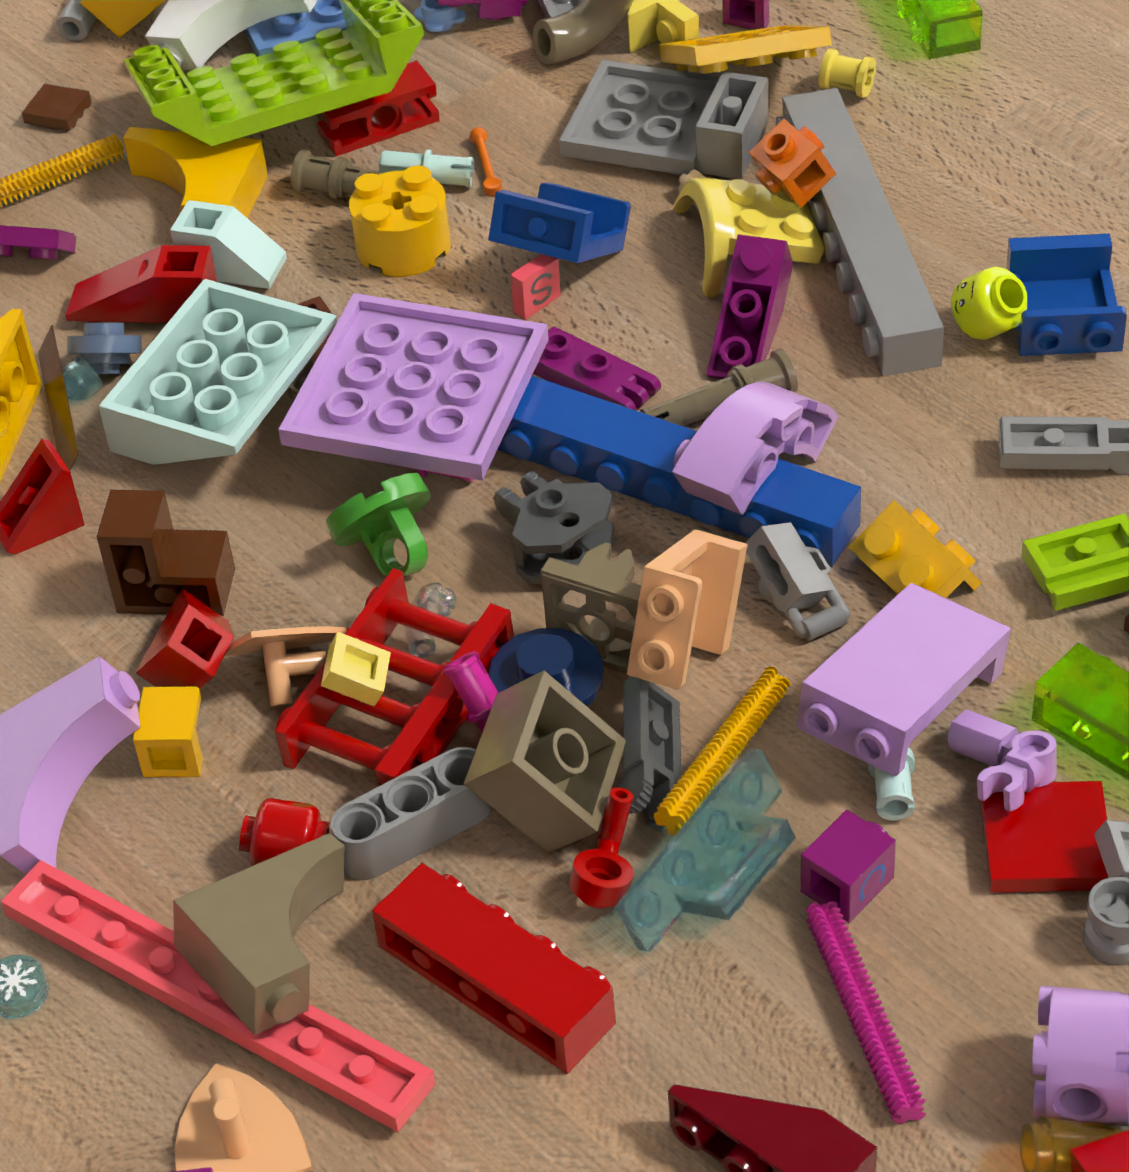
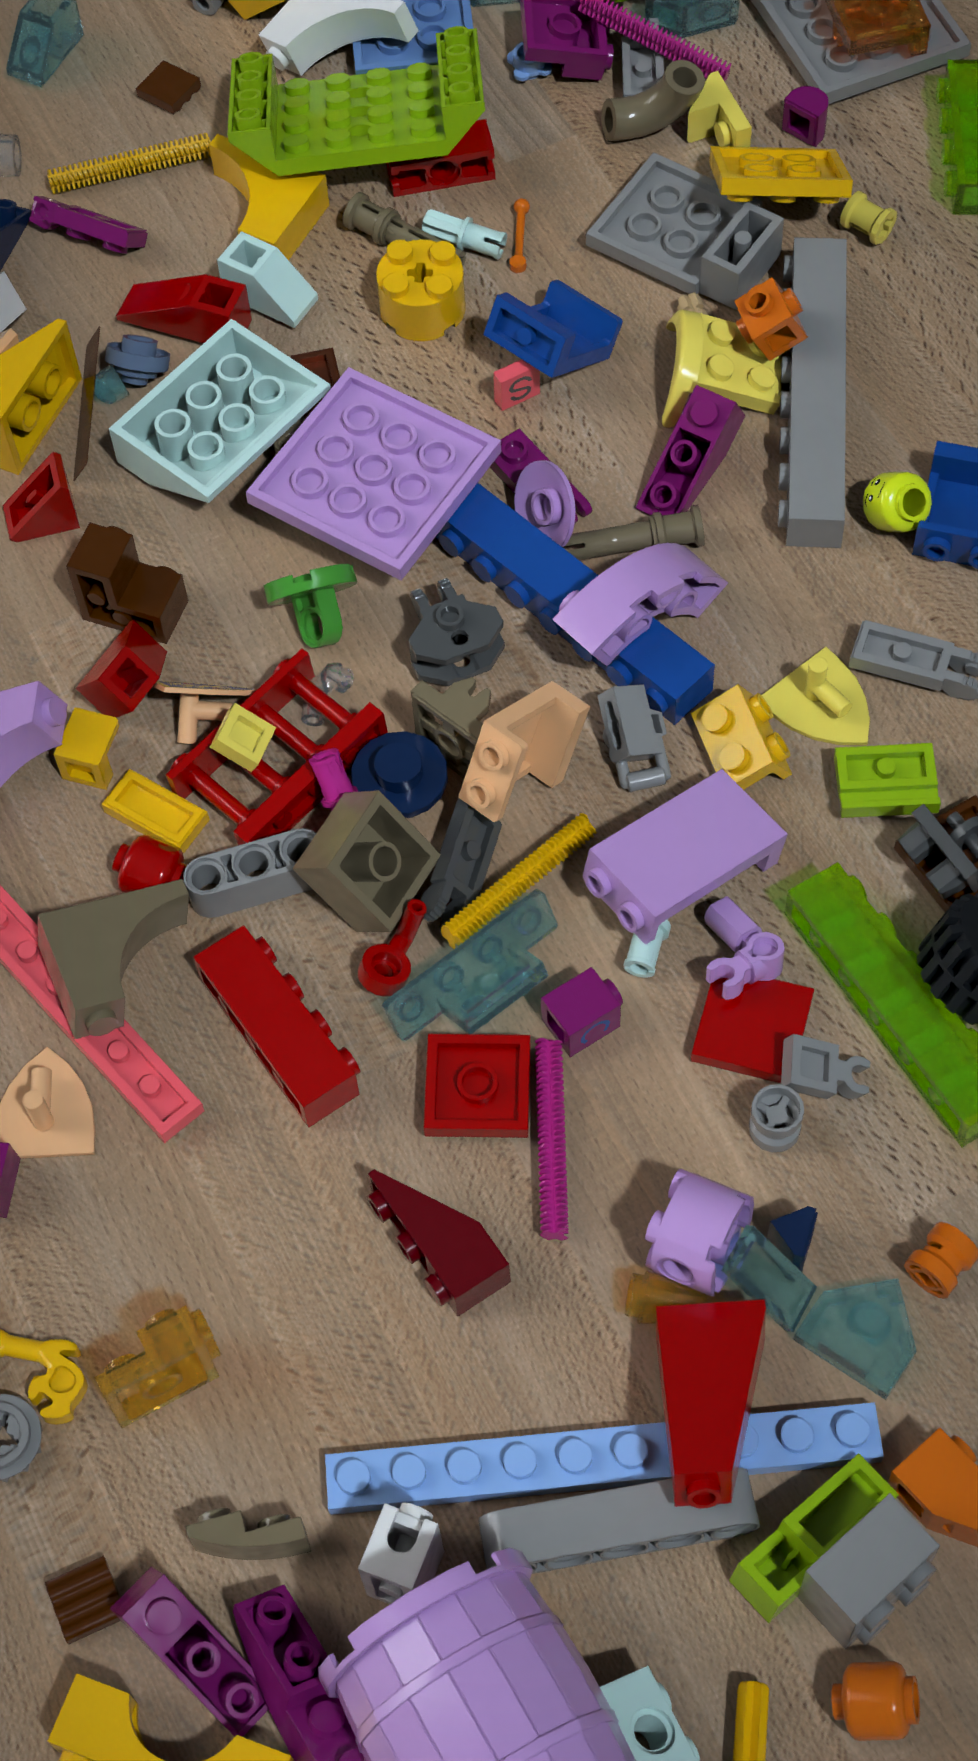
camera: 15 degrees right, 15 degrees up
(250, 776) = (155, 810): none -> yellow tile
(615, 370) = (546, 500): none -> lavender dish
(757, 973) = (477, 1085): none -> red plate
(985, 507) = (822, 701): none -> light yellow shield

